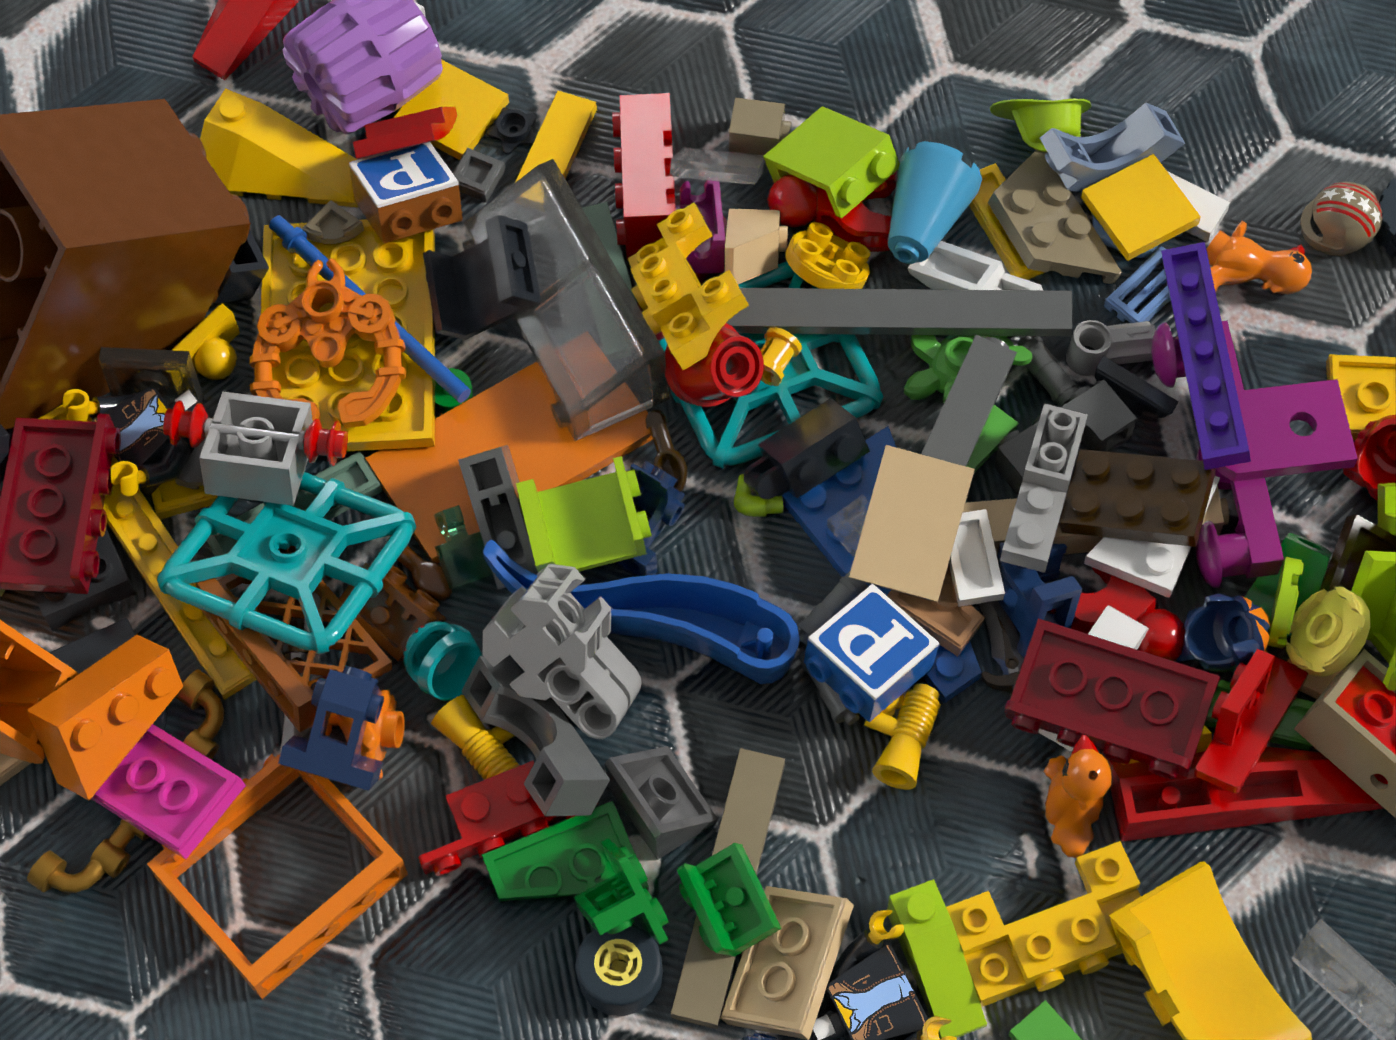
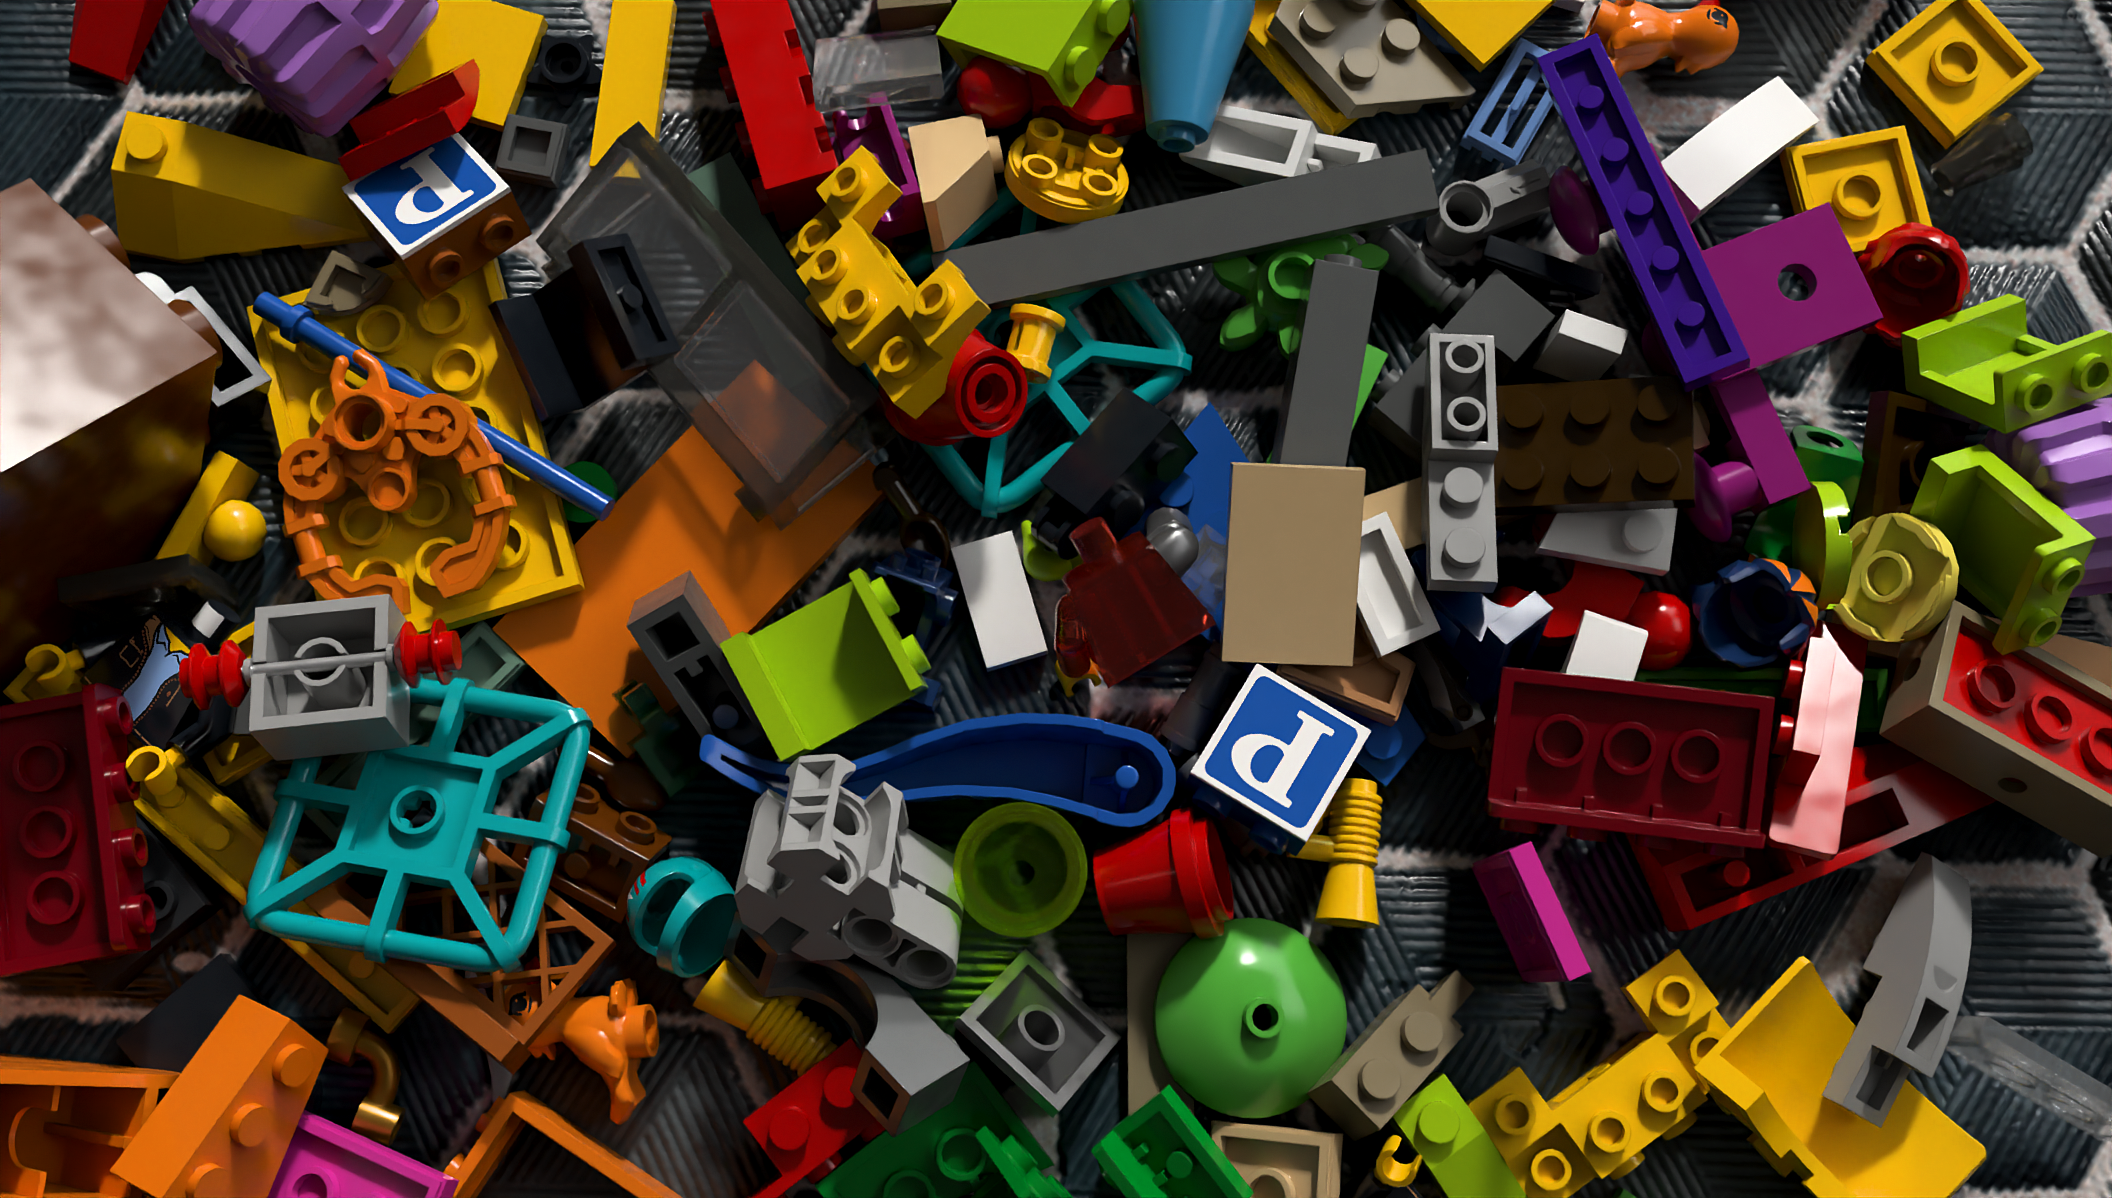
camera: 15 degrees left, 15 degrees up
(346, 694) = (569, 1037): dark blue tile -> none
(674, 662) = (1014, 835): none -> clear neon green piece
(710, 520) = (999, 601): none -> white tile
(776, 714) = (1166, 879): none -> red piece
(792, 524) = (1126, 600): none -> clear red torso
(795, 847) = (1208, 1026): none -> bright green dish
(900, 864) = (1392, 1057): none -> dark tan hinge
(1017, 785) = (1530, 916): none -> dark pink tile
(1076, 795) = (1605, 895): orange animal -> none
(1148, 434) = (1579, 348): none -> white tile
(1282, 915) = (1922, 980): none -> light grey slope
(1291, 345) = (1736, 146): none -> white slope

